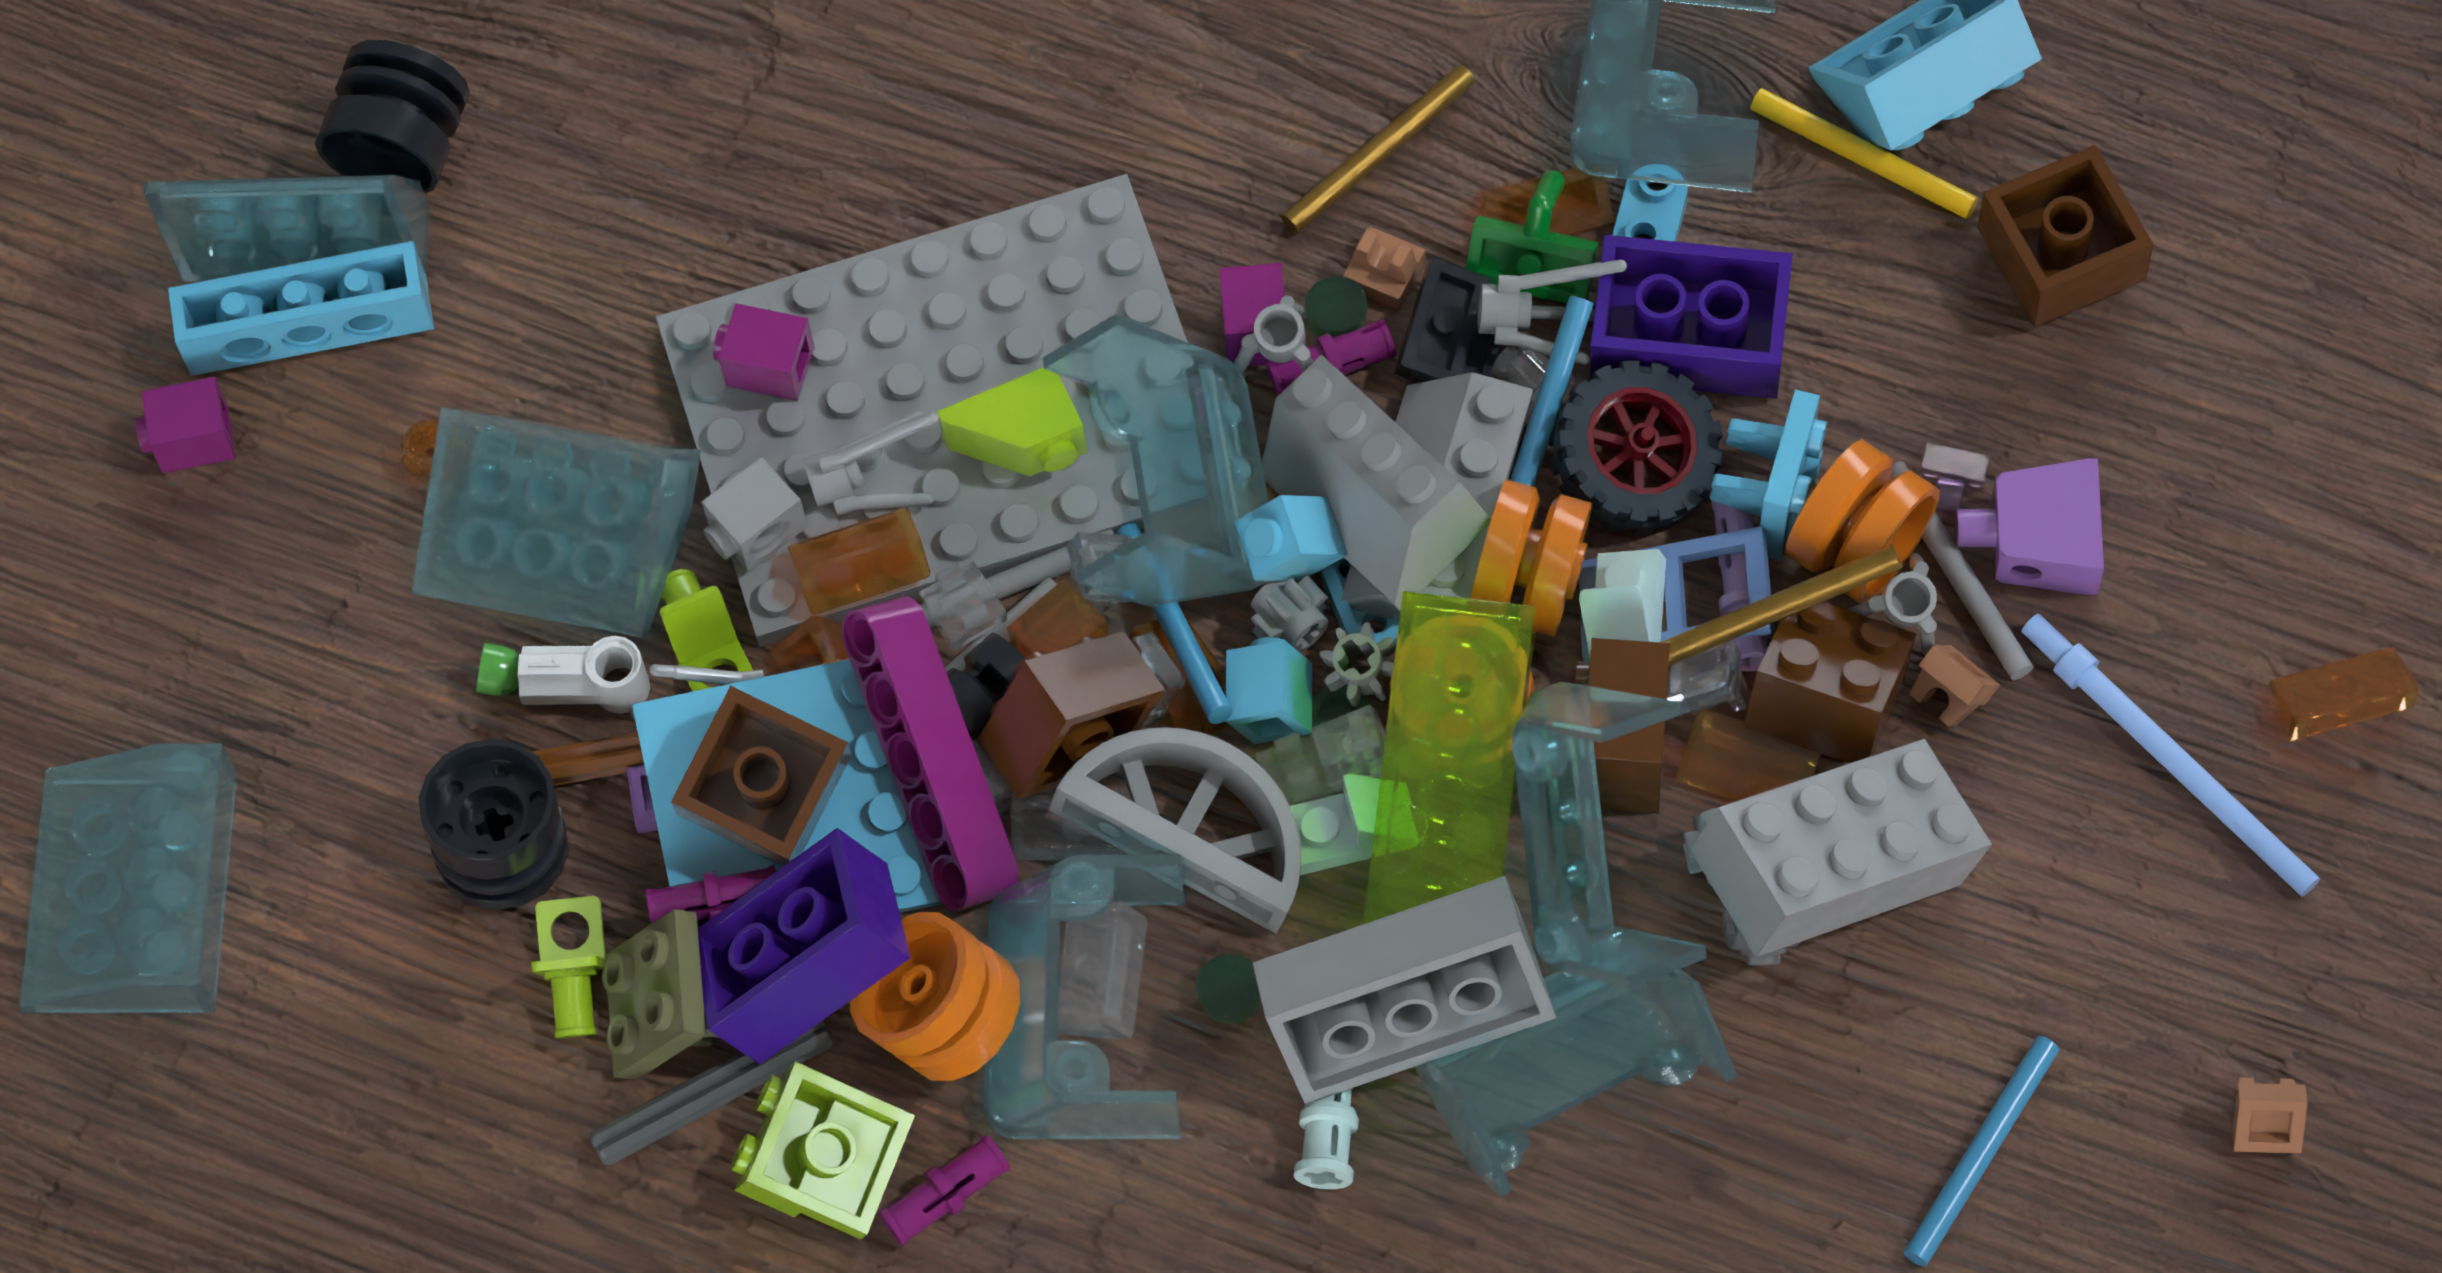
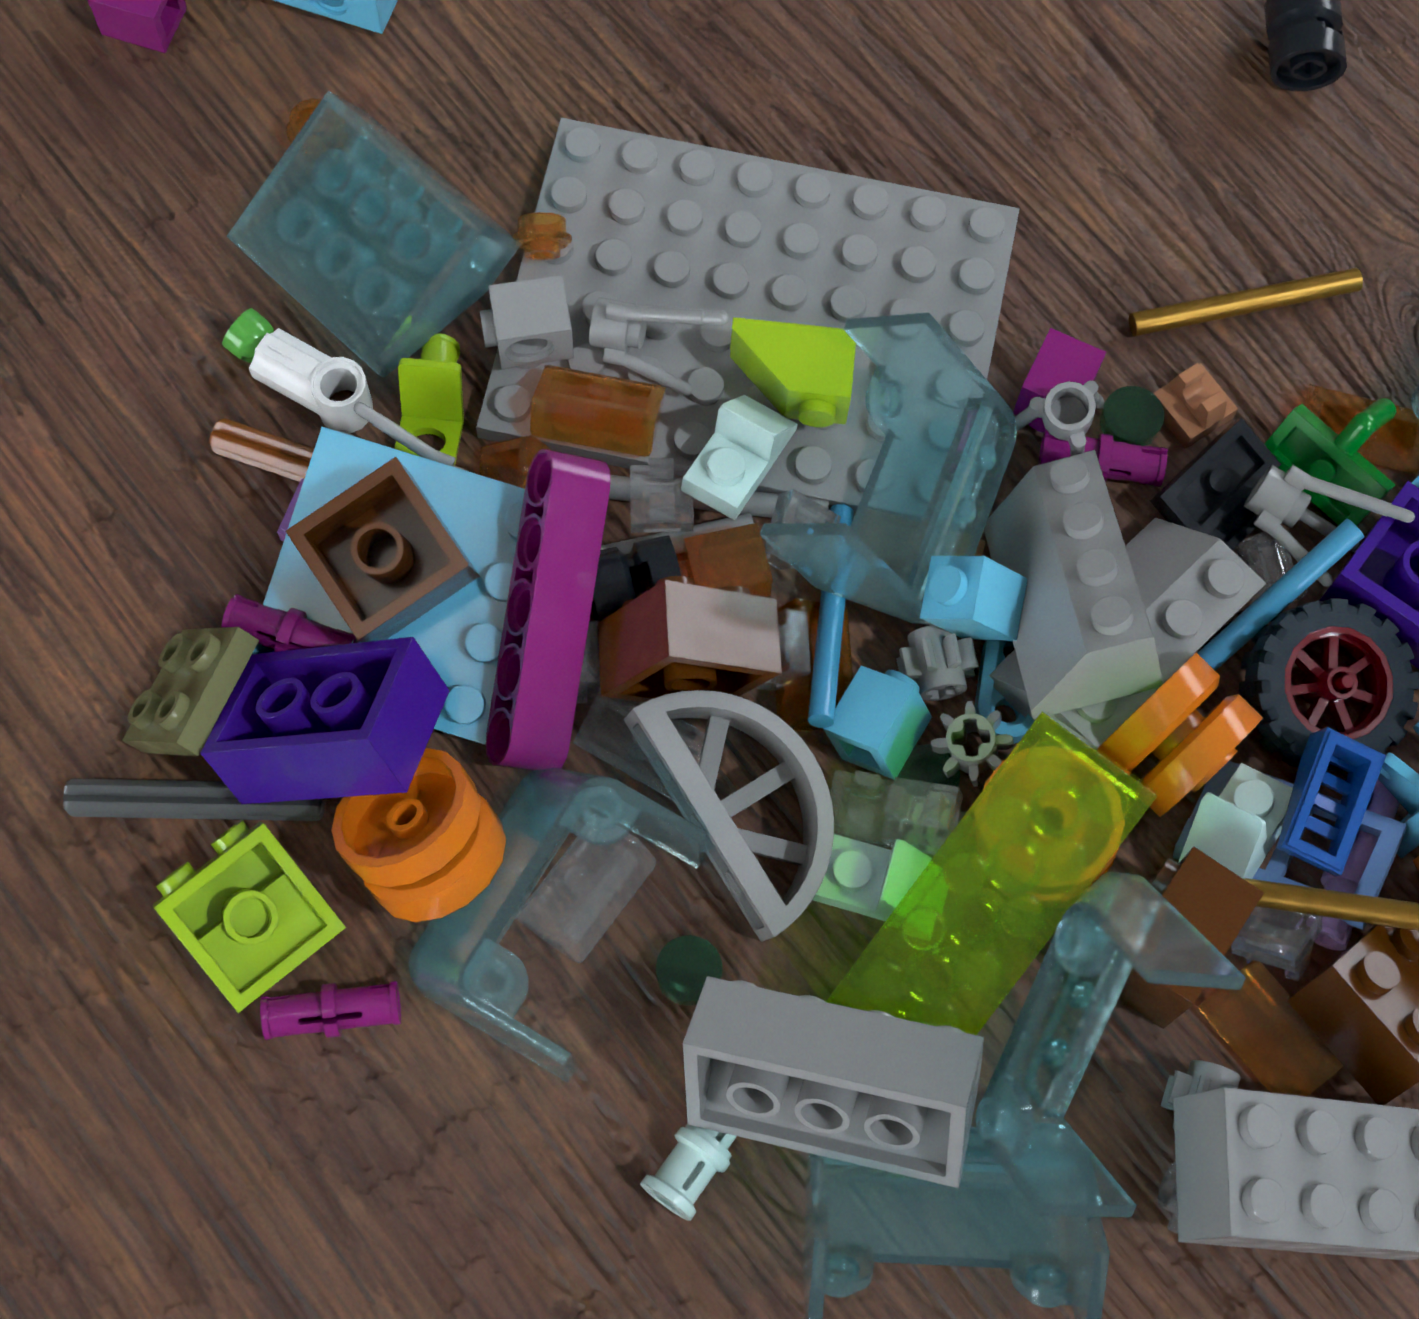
camera: 20 degrees right, 5 degrees up
(490, 793) = (152, 464): black wheel -> none
(571, 968) = (146, 623): lime bracket -> none
(714, 432) = (542, 235): none -> clear orange plate
(764, 351) = (625, 190): magenta brick -> none
(1010, 531) = (737, 455): none -> light aqua slope
(1680, 496) = (1363, 771): none -> blue slope

